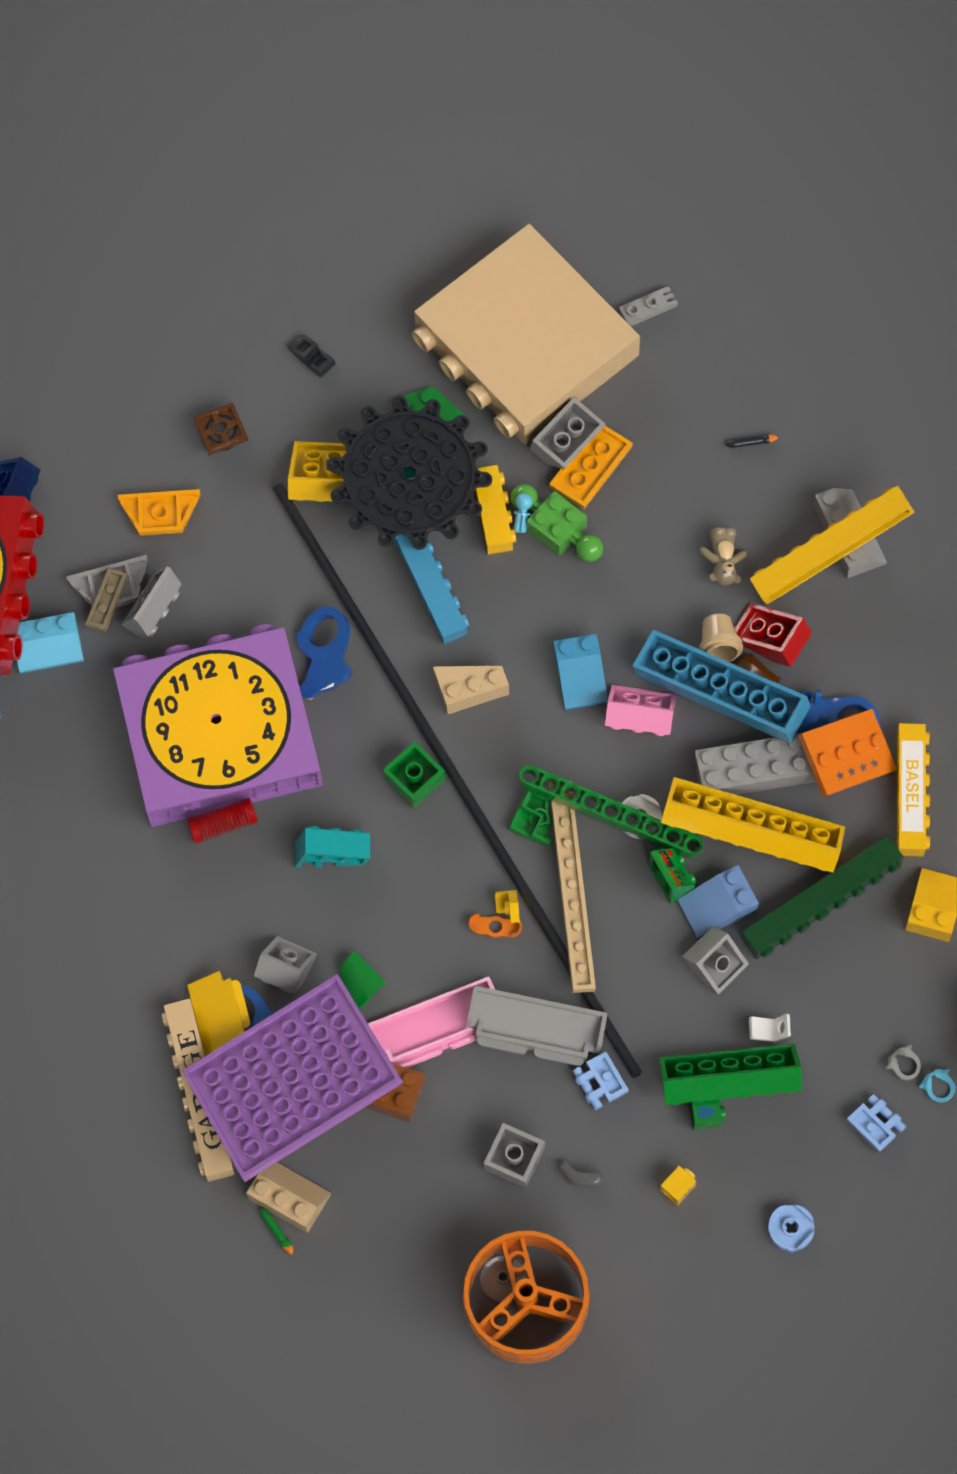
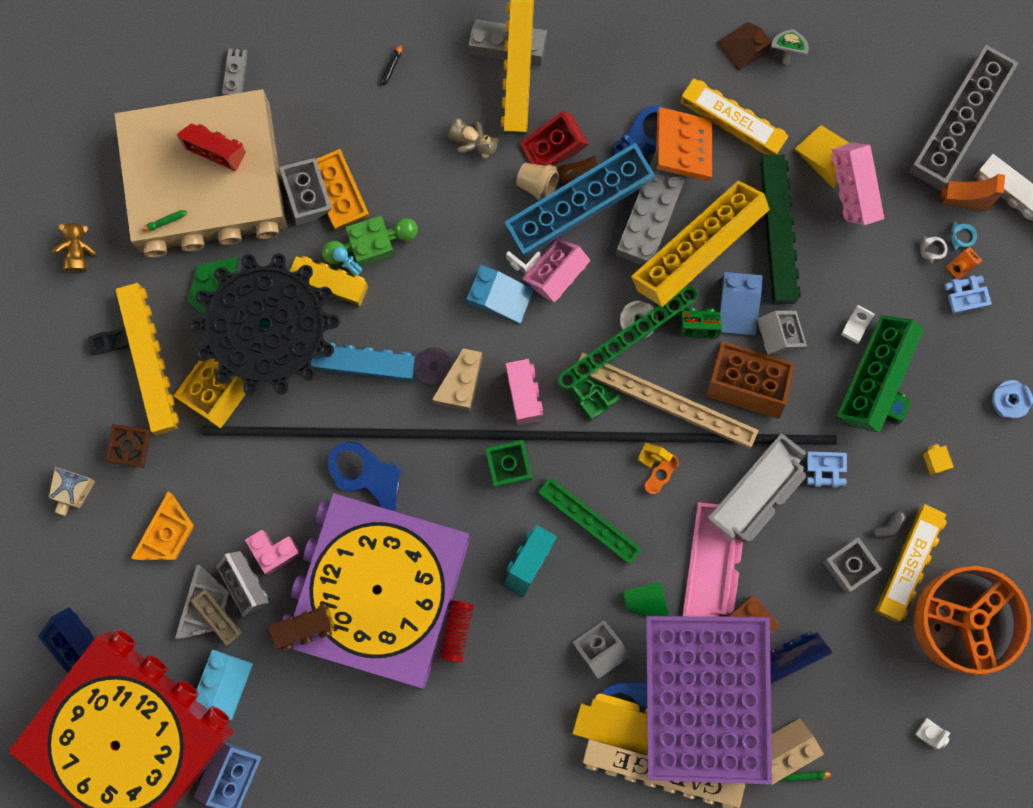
camera: 60 degrees left, 10 degrees up
(139, 671) = (302, 628): none -> reddish brown wedge
(149, 405) = (69, 490): none -> torso
(194, 612) = (272, 556): none -> bright pink brick
(314, 397) = (146, 359): none -> yellow brick
(370, 277) = (74, 255): none -> pearl gold piece
(381, 1146) = (797, 655): none -> clear blue slope
(391, 1331) = (932, 734): none -> white bracket
(406, 884) = (590, 521): none -> green plate
(440, 320) = (165, 220): none -> green piece
(471, 641) = (428, 357): none -> clear purple plate
(493, 746) = (524, 392): none -> bright pink brick
(551, 323) = (212, 146): none -> red slope
(555, 1215) = (910, 563): none -> yellow brick
(625, 681) = (519, 265): none -> white bracket
(646, 956) = (750, 380): none -> dark orange slope
(907, 1100) = (963, 263): none -> orange bracket
(914, 937) = (857, 183): none -> bright pink brick

